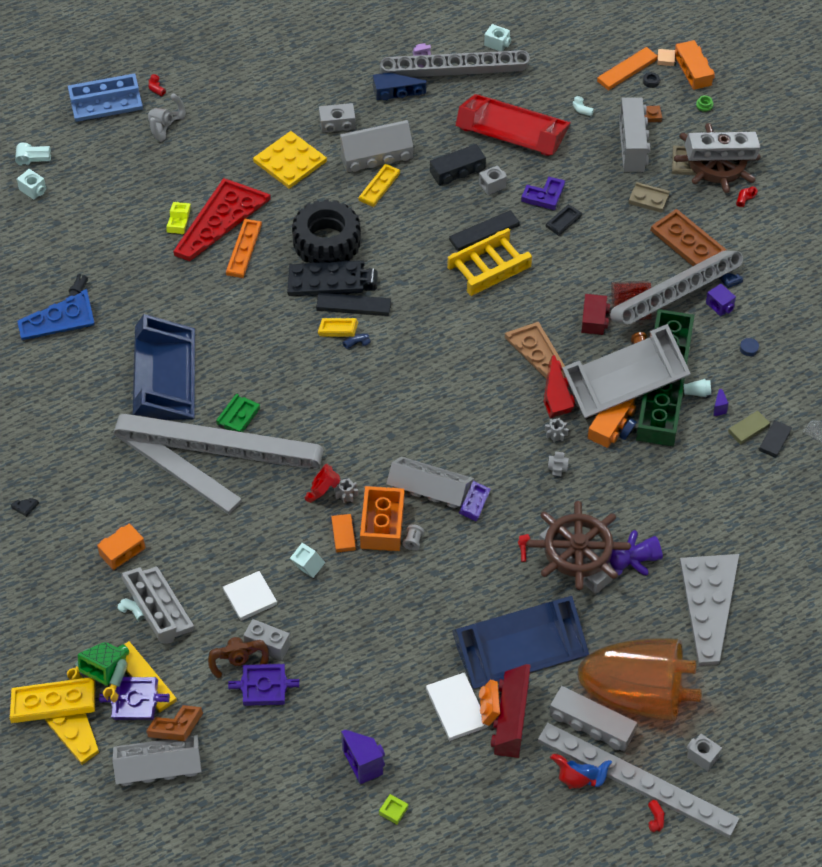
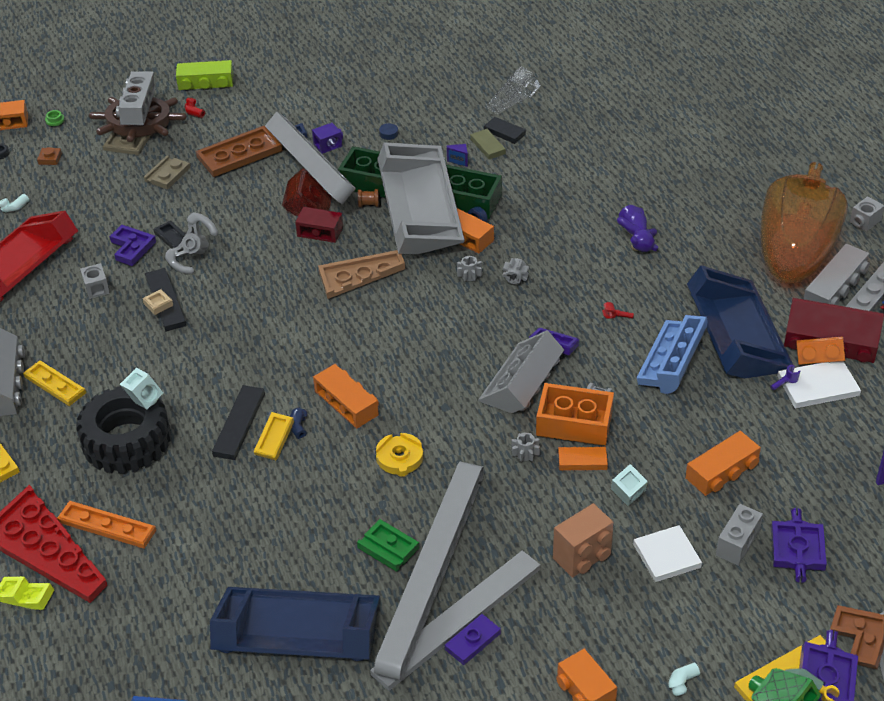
camera: 80 degrees left, 10 degrees down
(157, 603) = (682, 644): light grey brick -> none
(159, 477) = (472, 639): none -> dark purple plate
(237, 653) = (760, 562): reddish brown piece -> none
(243, 530) = (583, 540): none -> nougat brick
(321, 483) = (517, 464): red plate -> none
(330, 278) = (192, 440): black hinge -> none
(334, 418) = (402, 464): none -> yellow plate
(340, 224) = (136, 383): none -> light aqua brick
(345, 629) = (723, 463): none -> orange brick
(386, 365) = (346, 396): none -> orange brick
(452, 676) = (790, 376): none -> dark purple hand
(457, 164) = (58, 307): black brick -> none
(470, 587) = (672, 353): none -> medium blue brick
(473, 224) = (157, 302): none -> tan tile
(489, 276) = (232, 283): yellow fence -> none
(544, 230) = (192, 242): none -> light grey piece
(556, 395) = (420, 258): red slope -> none
(572, 552) = (639, 262): reddish brown brick -> none
(634, 135) = (82, 162): light grey brick -> none
(708, 595) = (676, 192): light grey wing -> none
(795, 192) = (204, 75): none -> lime brick

